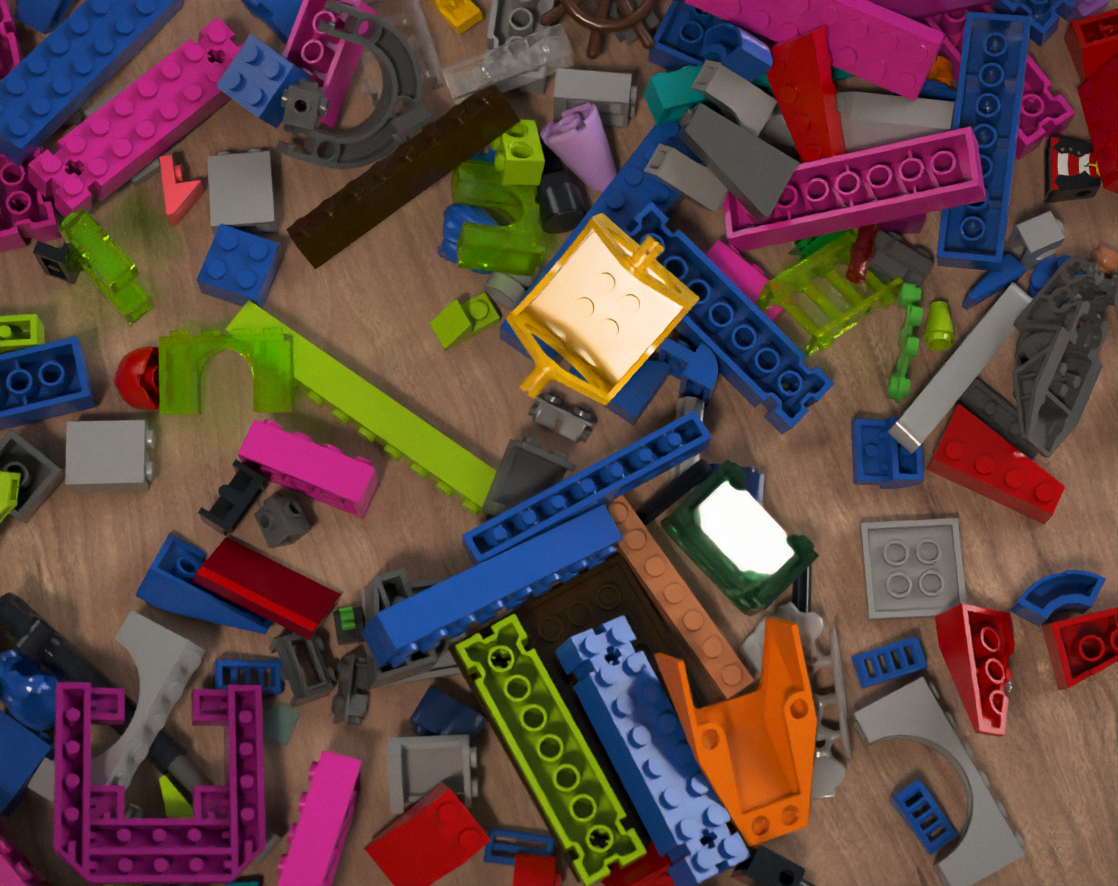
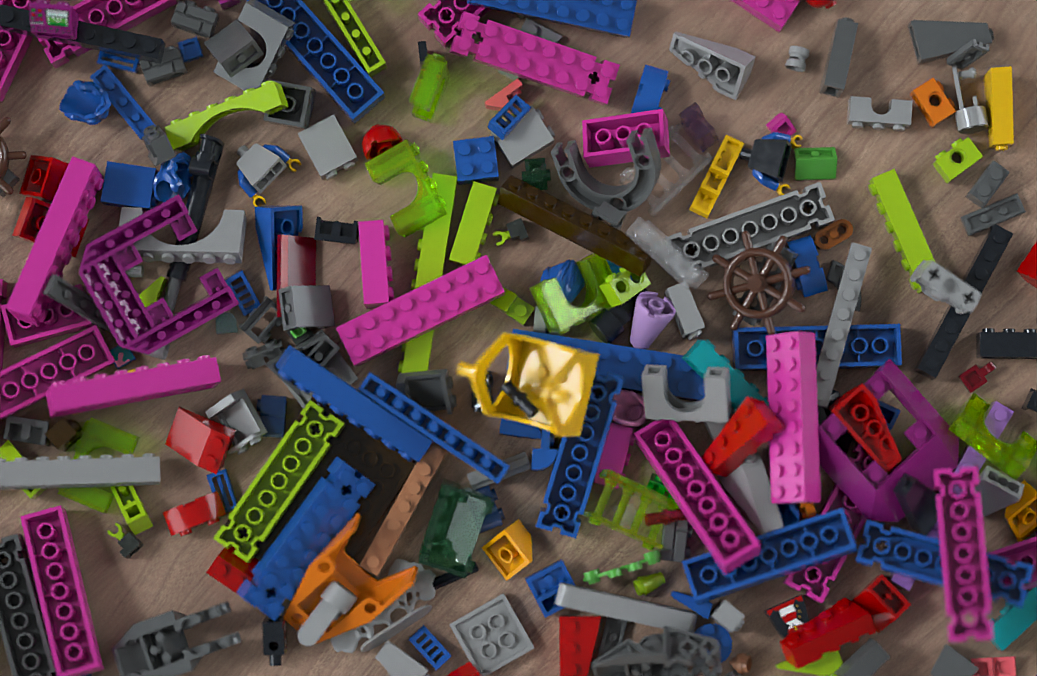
camera: 65 degrees right, 10 degrees up
(83, 560) = (260, 167): none -> light grey torso
(215, 208) = (505, 128): none -> blue slope
(259, 79) = (590, 114): blue brick -> none
(282, 520) = (339, 264): dark grey brick -> none
(296, 110) = (583, 147): dark grey brick -> none
(301, 195) = (536, 173): none -> clear green brick
(318, 591) = (306, 307): none -> dark grey panel
(327, 315) = (473, 224): none -> lime brick
(364, 267) = (515, 230): none -> pearl dark grey piece
(409, 435) = (420, 311): none -> dark pink brick
(608, 349) = (520, 399): none -> black pin
(674, 491) = (464, 476): black axle -> none
(695, 224) = (629, 409): none -> bright pink hair
(737, 51) = (742, 384): blue brick -> none
(739, 159) = (676, 421): dark grey slope -> none
(763, 753) = (335, 601): none -> light grey piece
(805, 484) = (510, 549): none -> light orange slope

